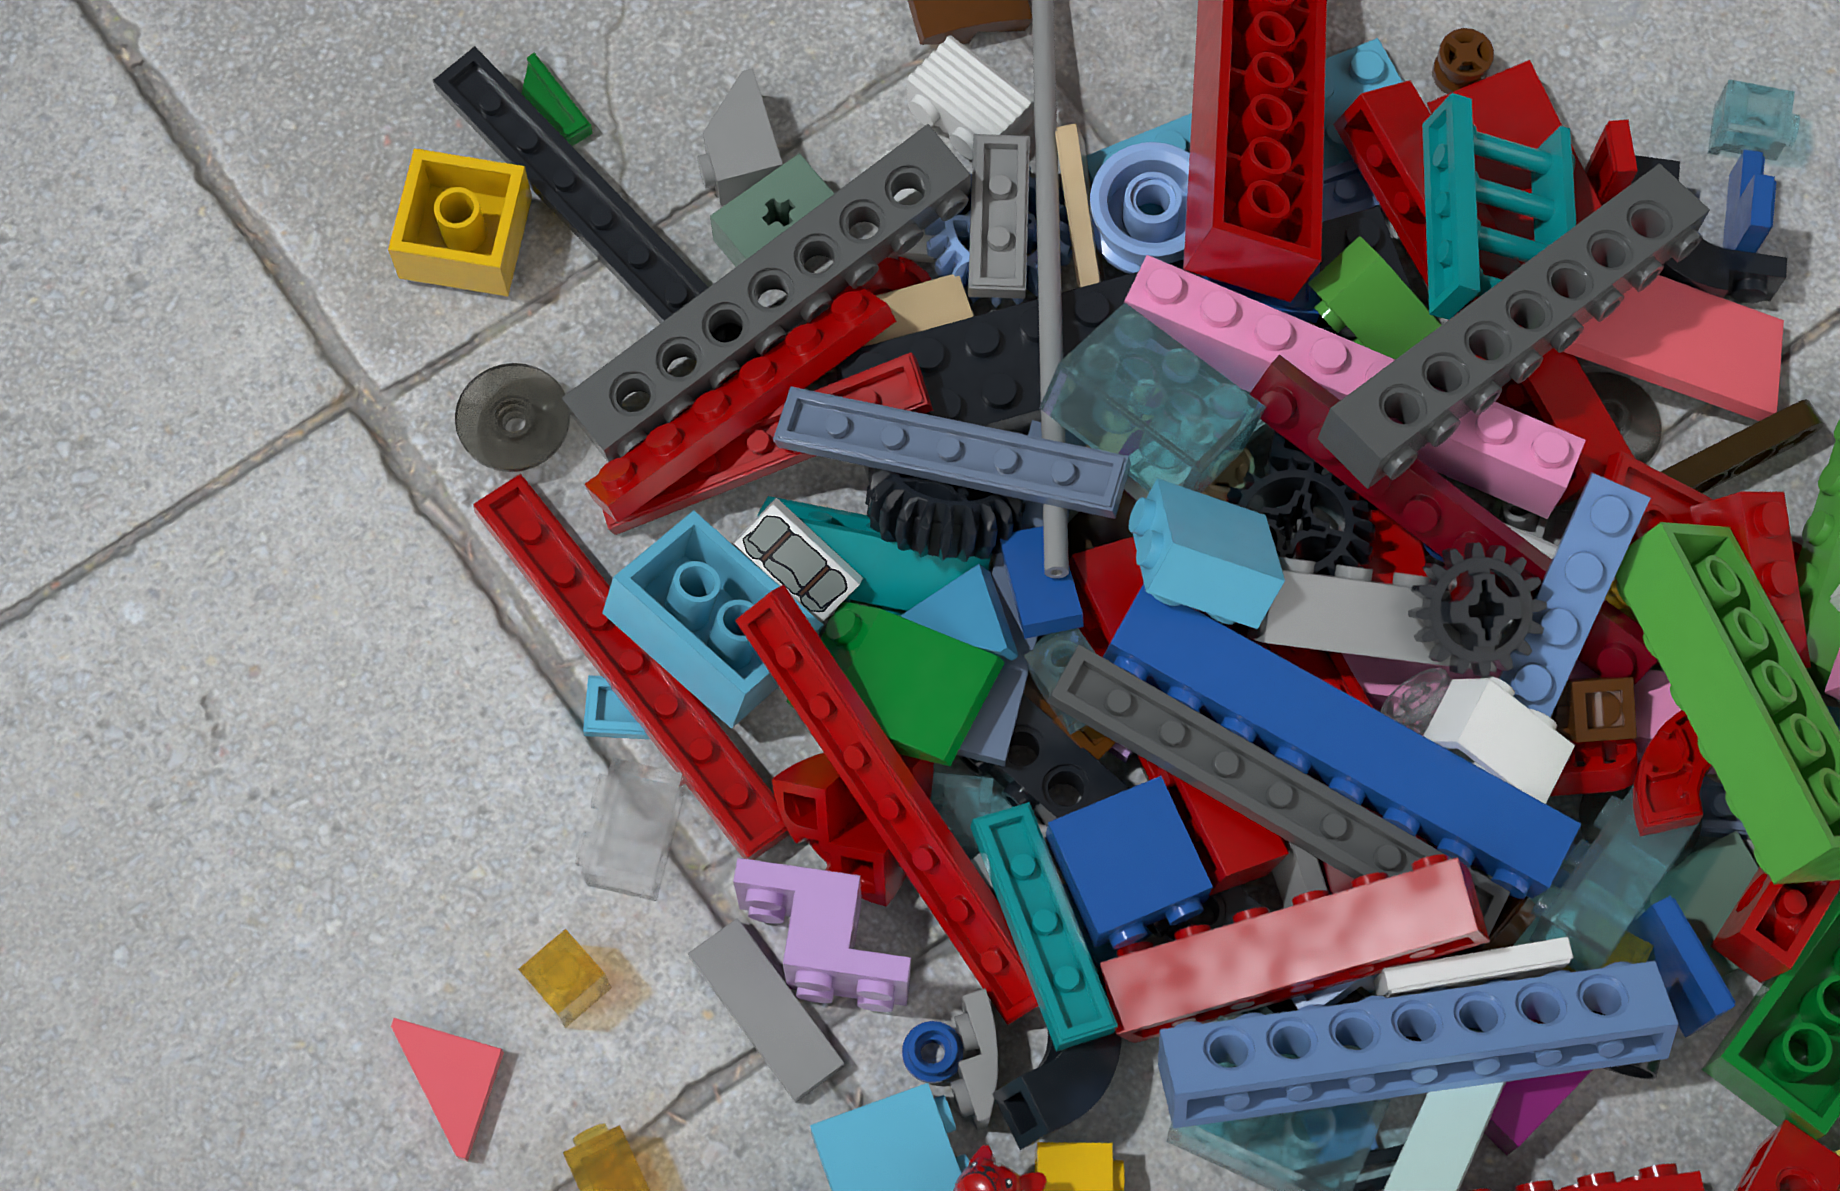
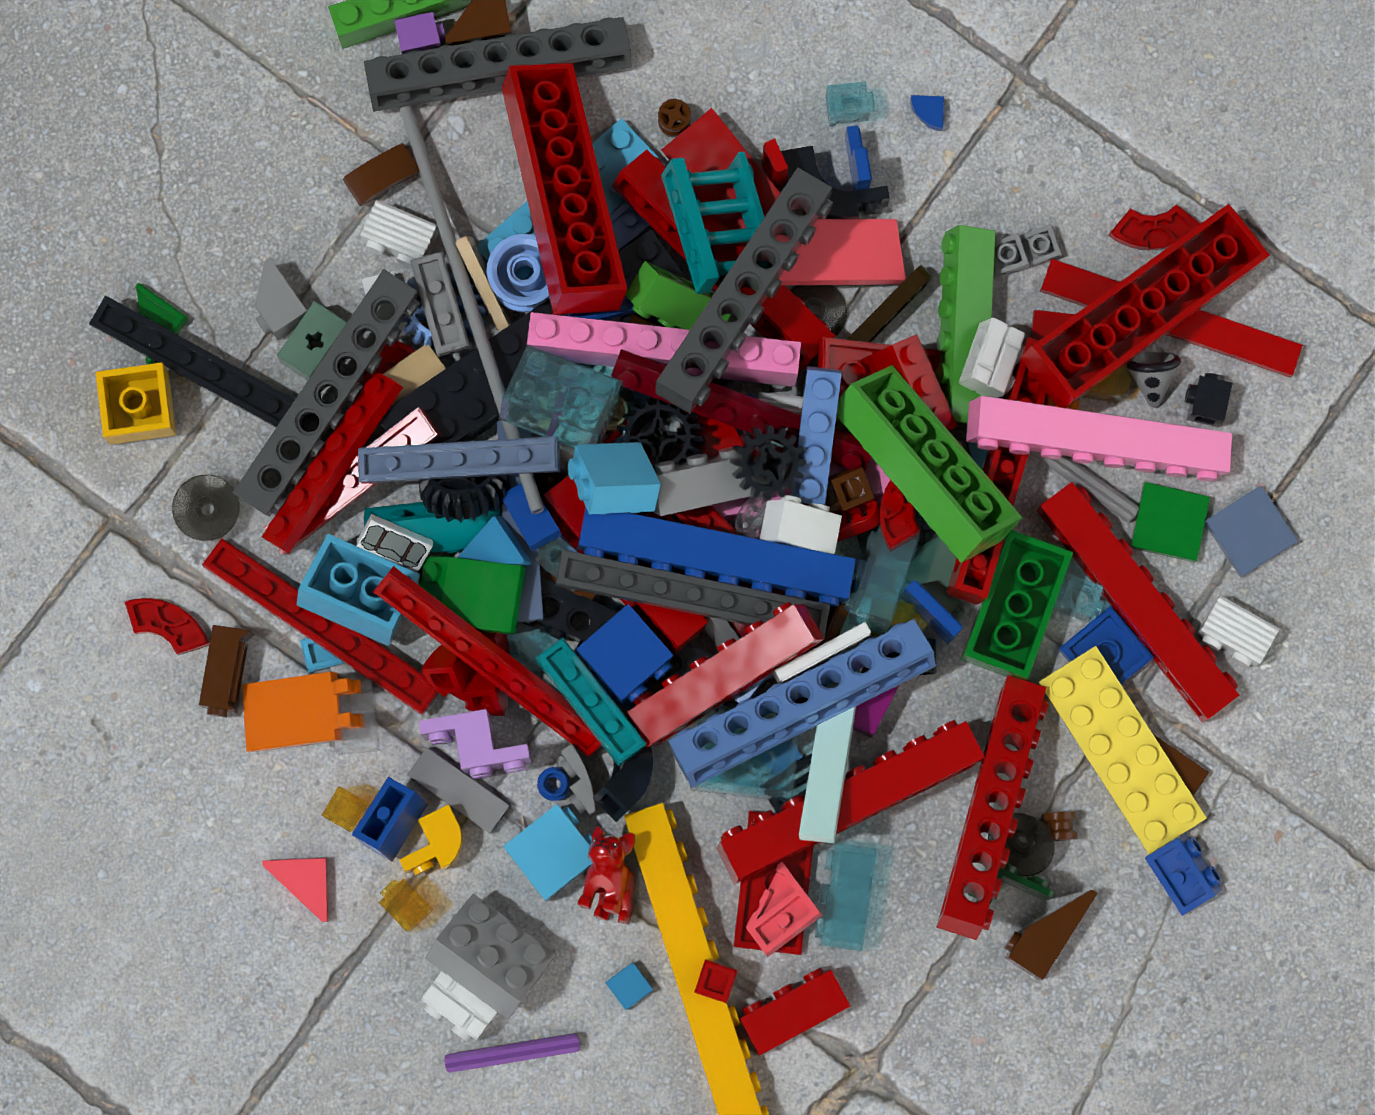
camera: 20 degrees left, 10 degrees up
(383, 577) = (168, 621): none -> red tile
(447, 681) = (224, 670): none -> reddish brown window
(543, 785) = (297, 711): none -> orange tile
(632, 1016) = (390, 819): none -> blue brick
(713, 1086) = (444, 841): none -> yellow brick

